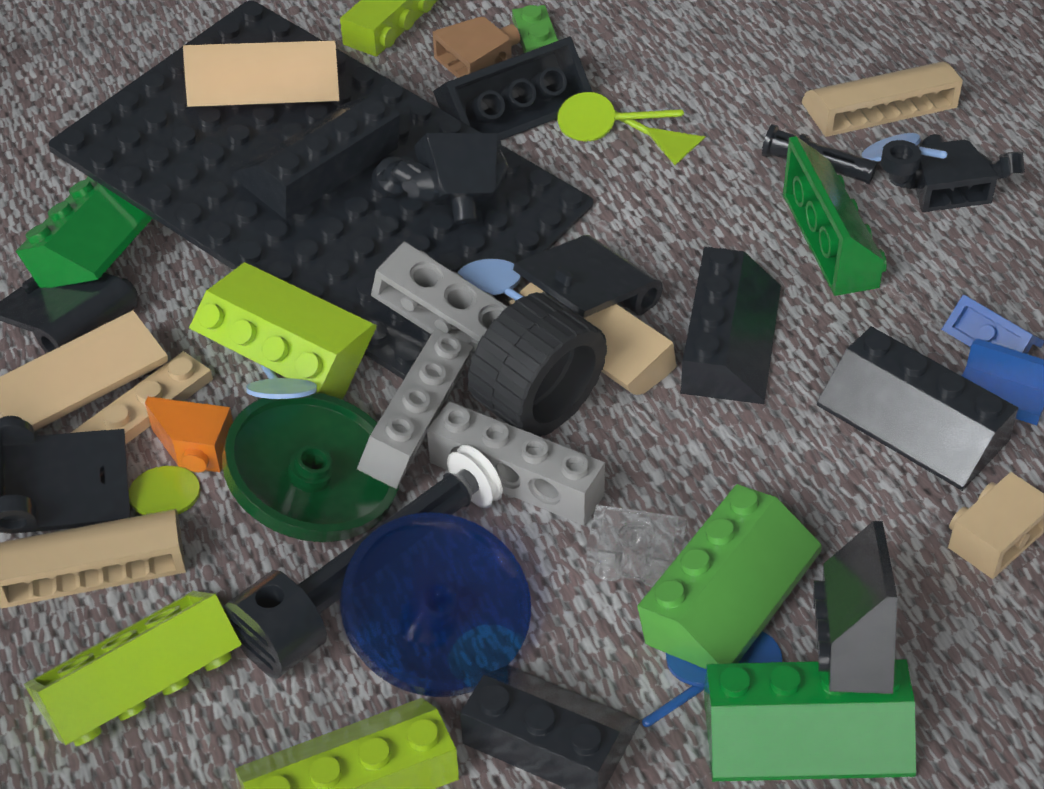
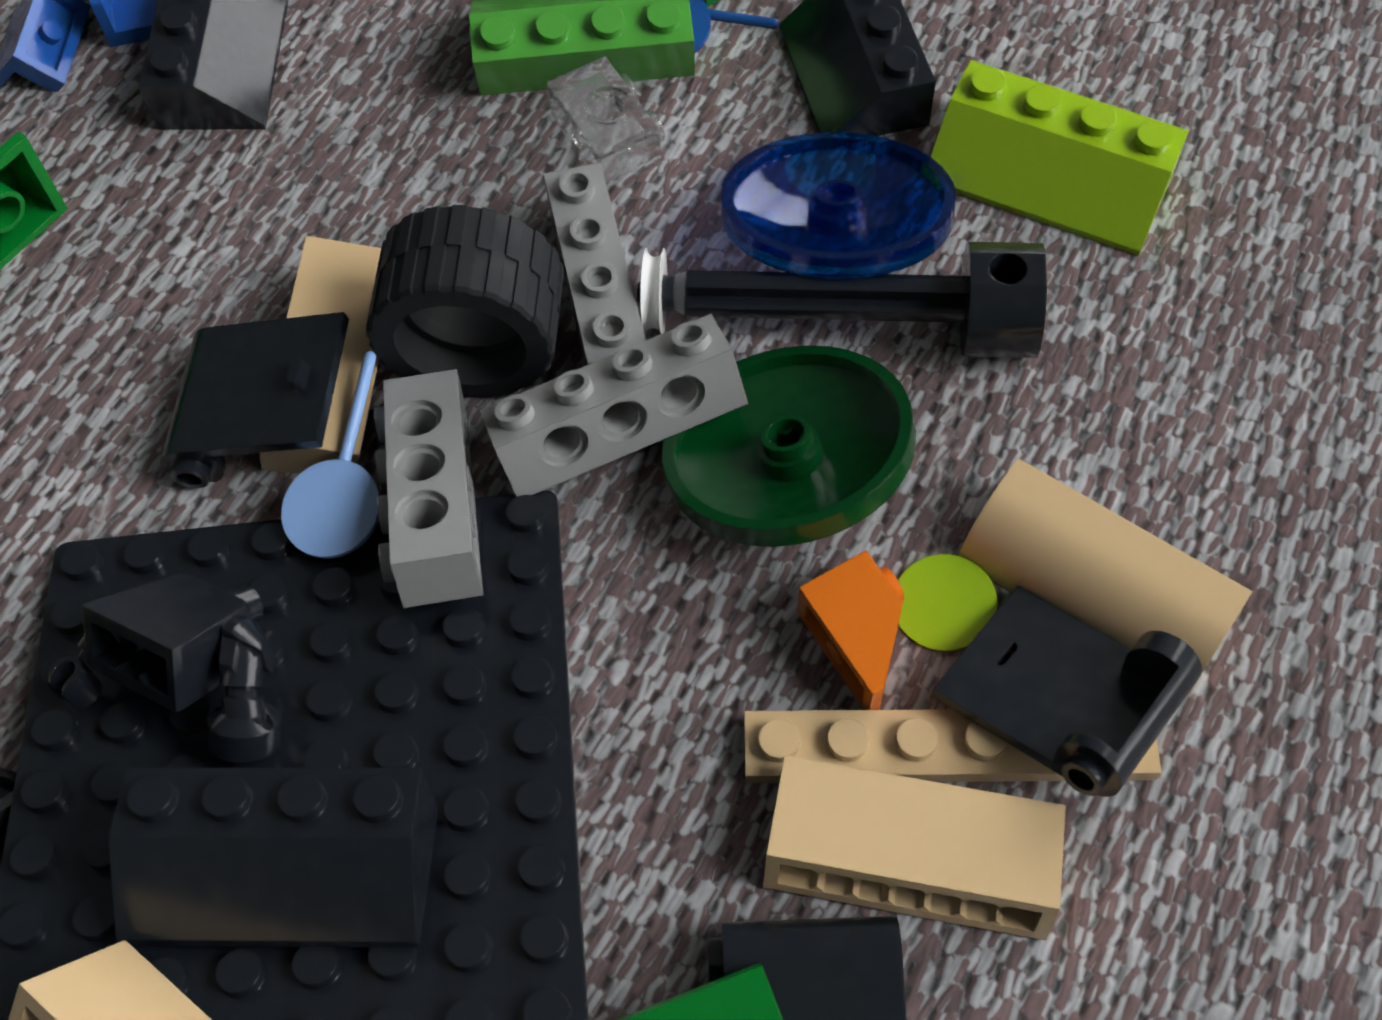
camera: 130 degrees left, 15 degrees up
(133, 666) = (1162, 410): lime slope -> none
(280, 387) = (736, 530): piece -> none
(284, 328) = (628, 650): lime slope -> none
(730, 328) = (215, 251): black slope -> none

